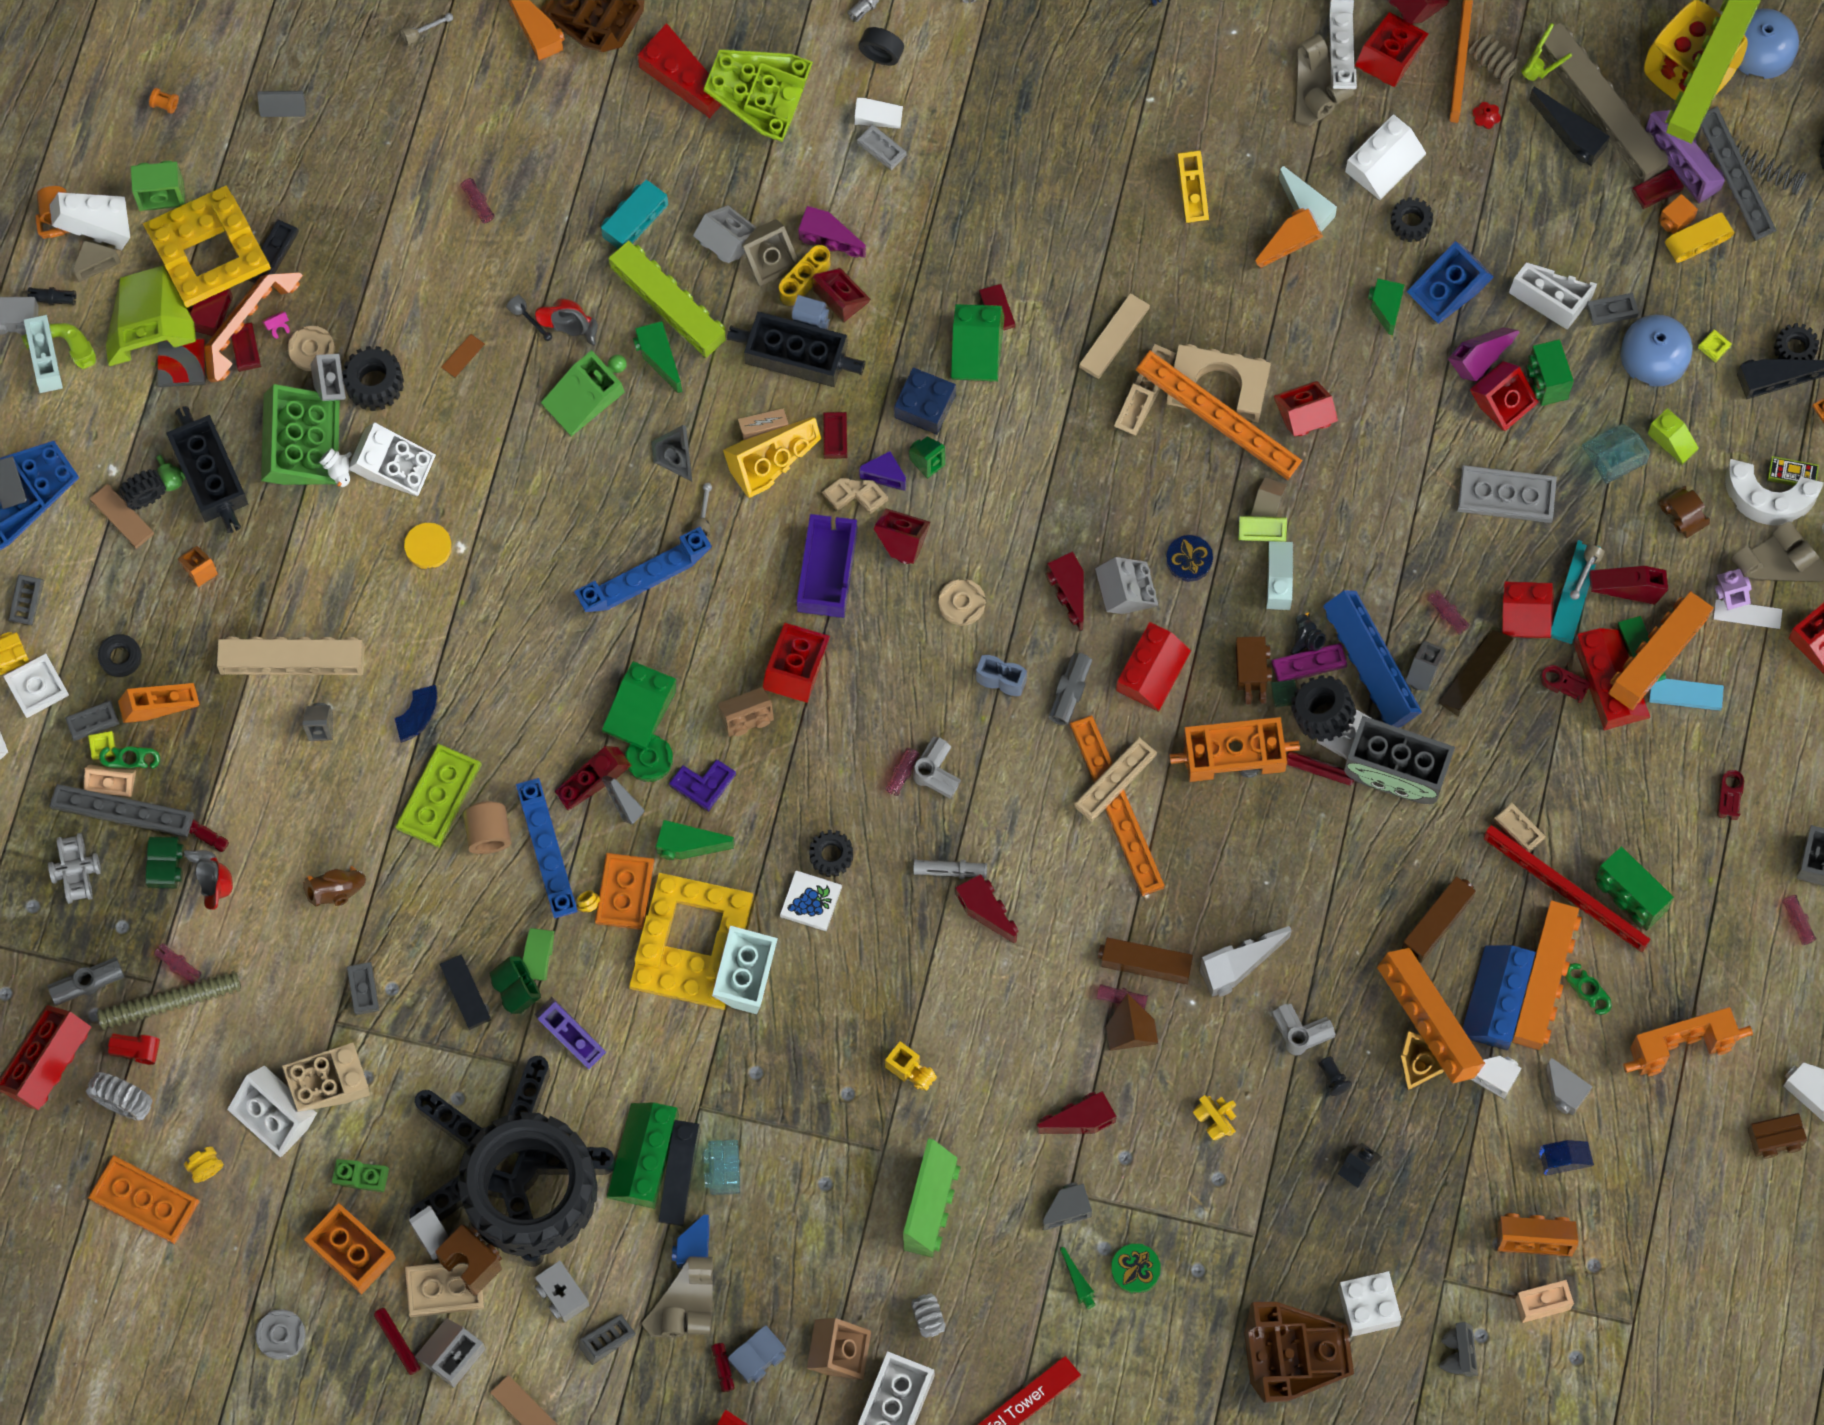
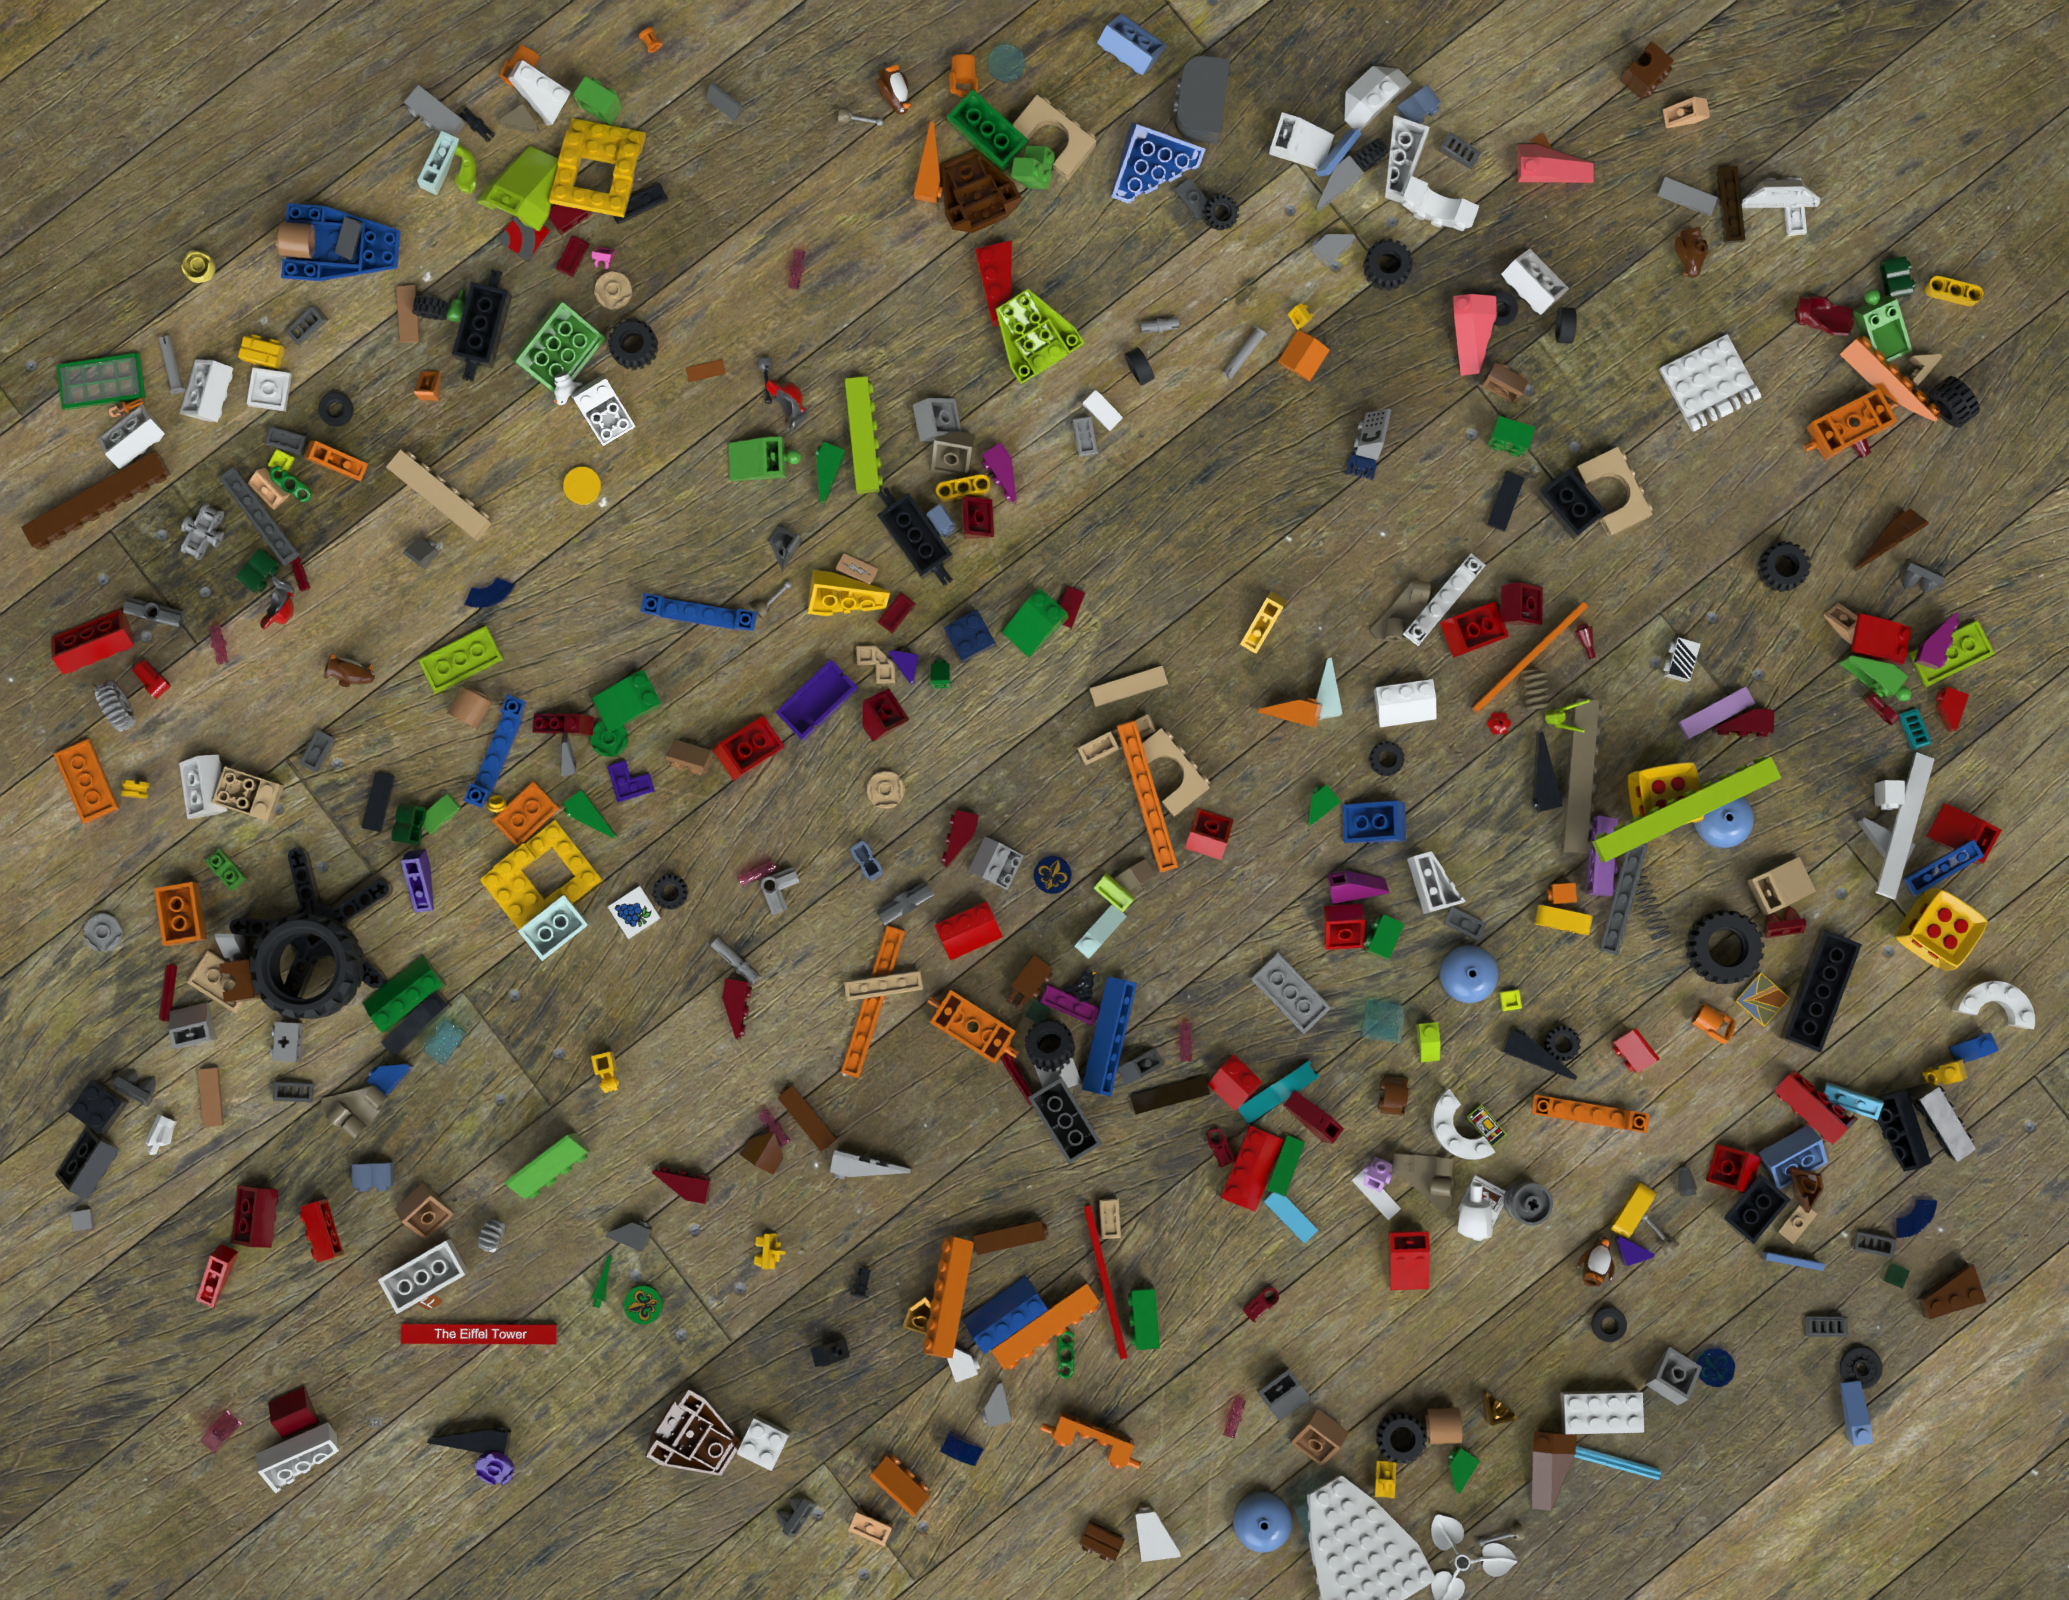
camera: 40 degrees right, 15 degrees up
(168, 1000) = (194, 664): olive piece -> none
(216, 363) = (591, 231): slope -> none
(328, 377) = (603, 323): light grey slope -> none
(634, 214) = (887, 359): teal brick -> none
(722, 1367) = (346, 1167): dark red axle -> none
(1310, 1034) = (870, 1246): light grey piece -> none
(1593, 556) = (1304, 1082): hinge -> none
(1657, 188) = (1566, 863): dark red tile -> none
(1660, 650) = (1294, 1179): orange brick -> none

